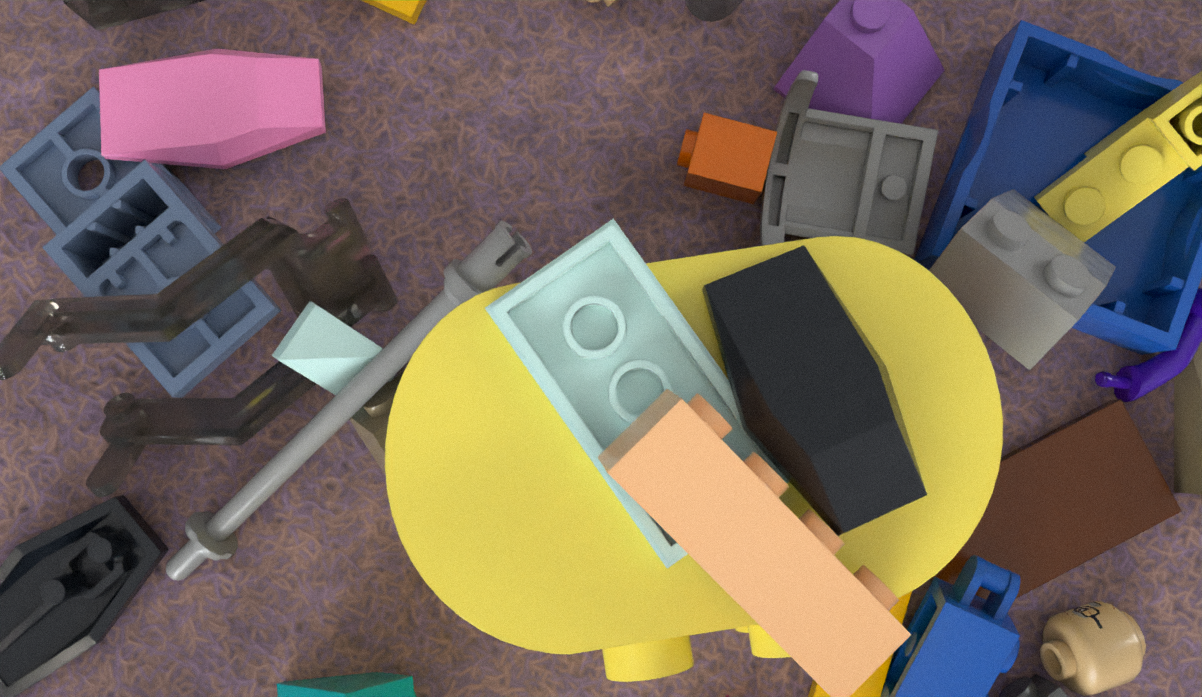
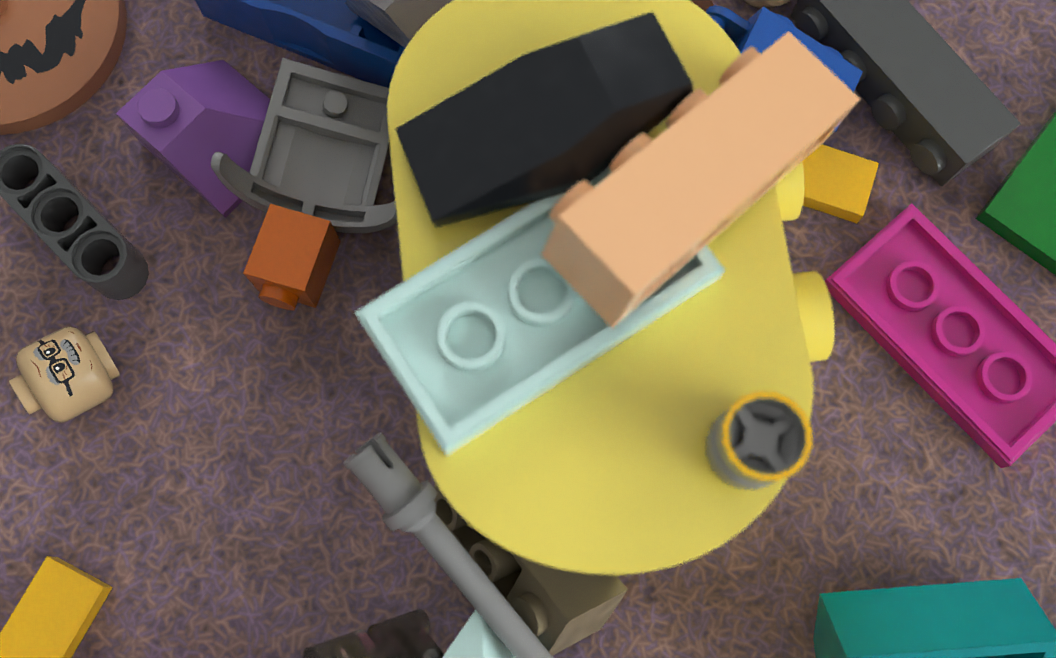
camera: 90 degrees left, 10 degrees down
(487, 604) = (772, 431): none -> light grey wheel

